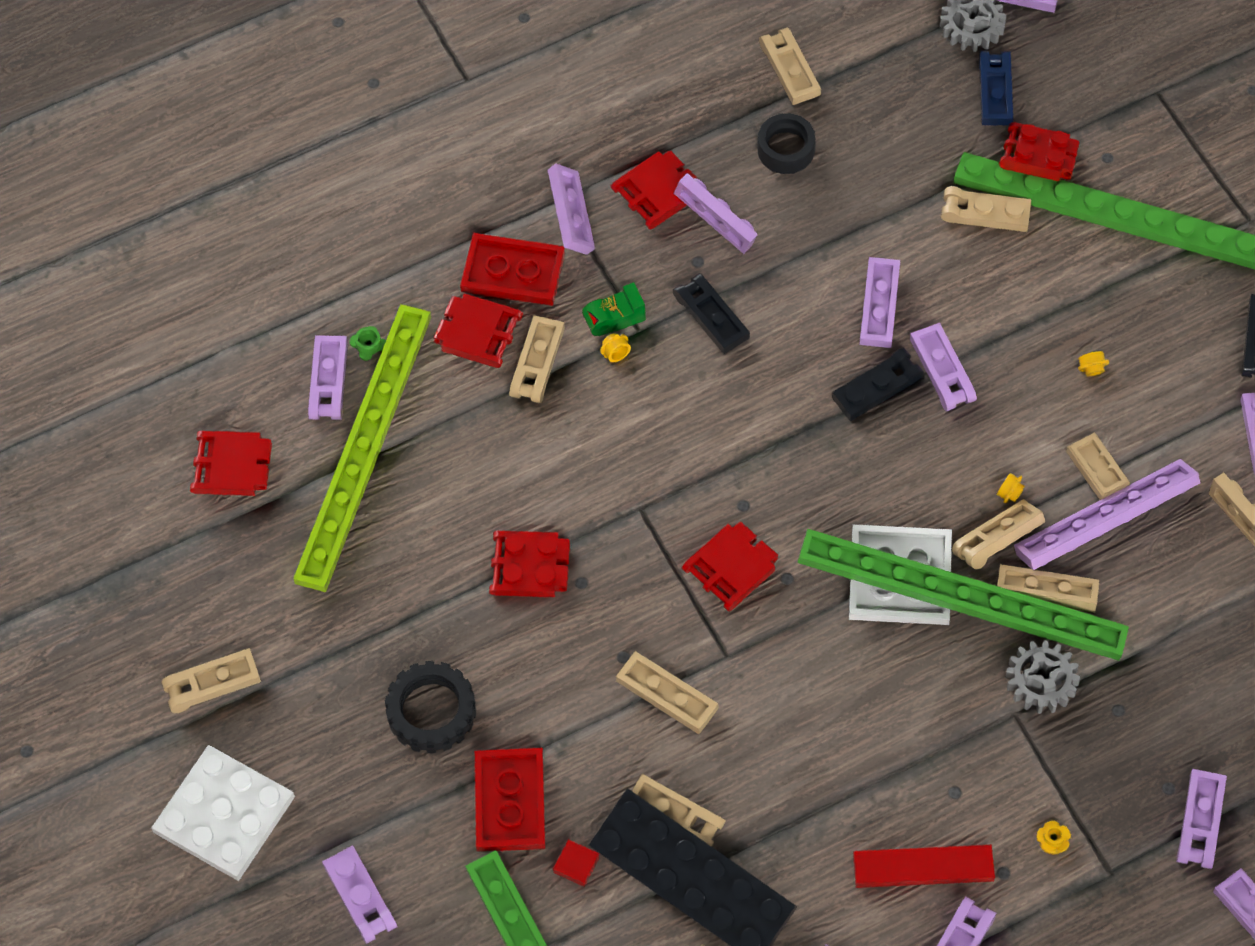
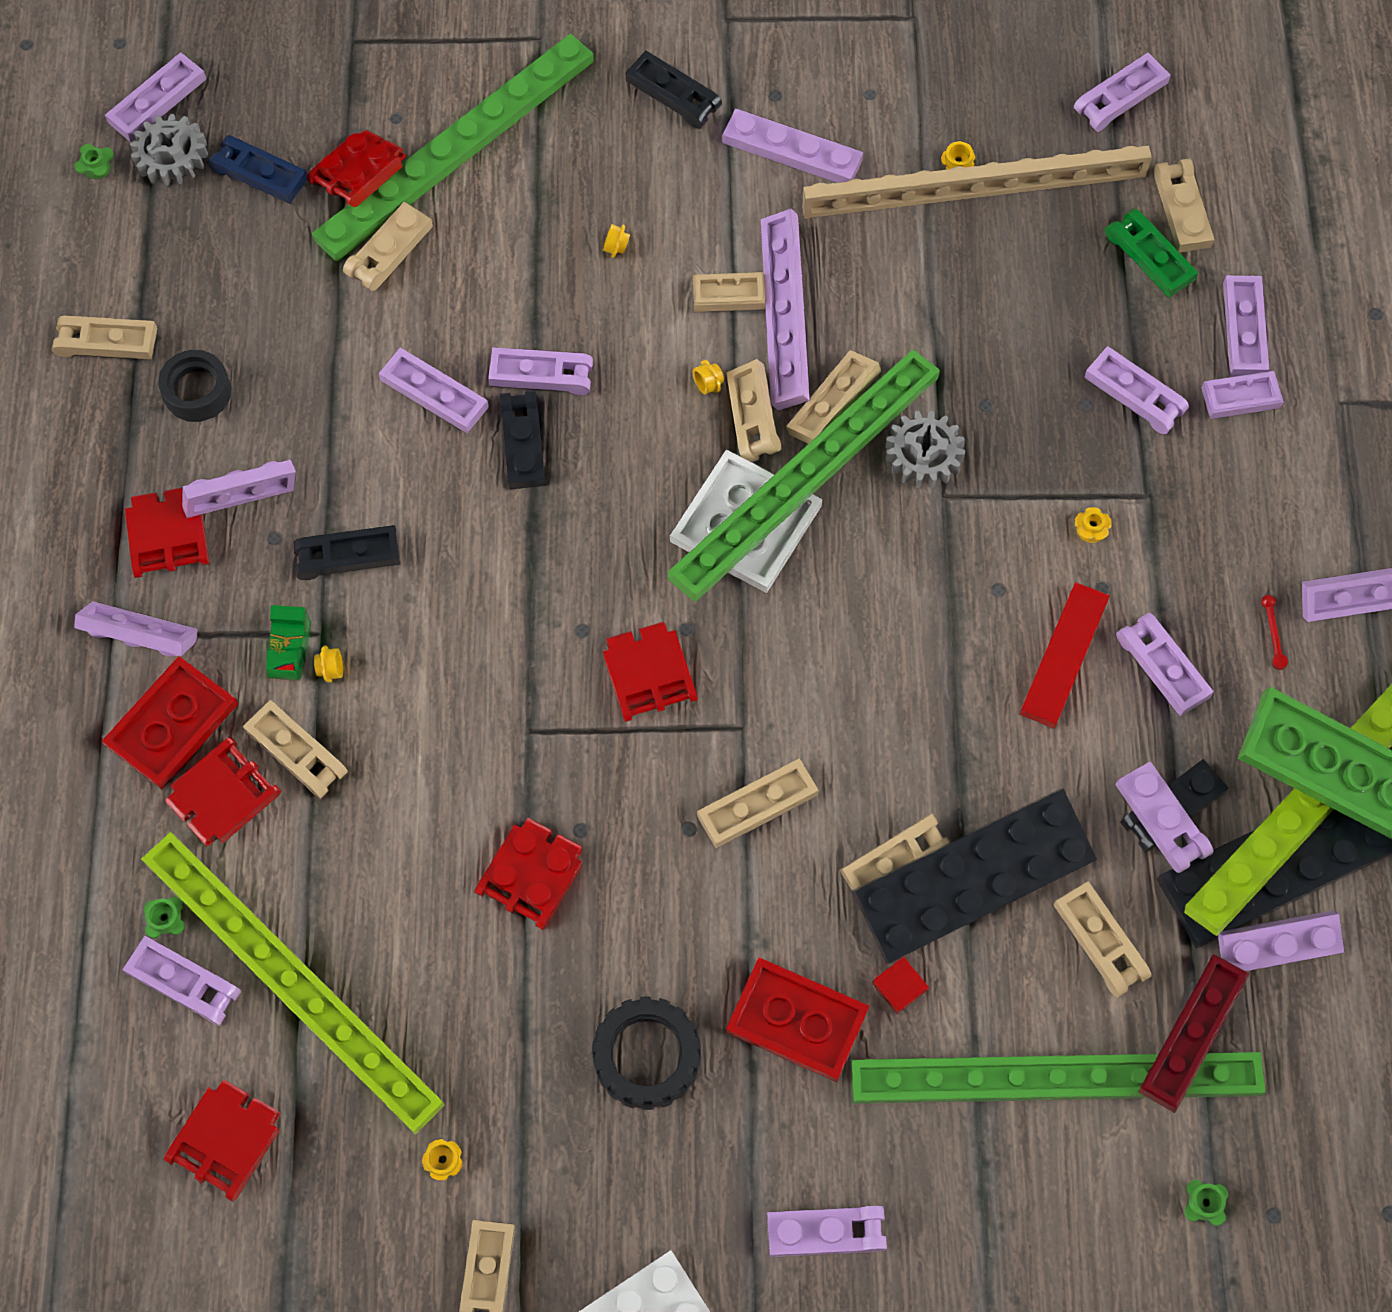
camera: 65 degrees left, 5 degrees up
(285, 601) = (431, 1157): none -> yellow plate

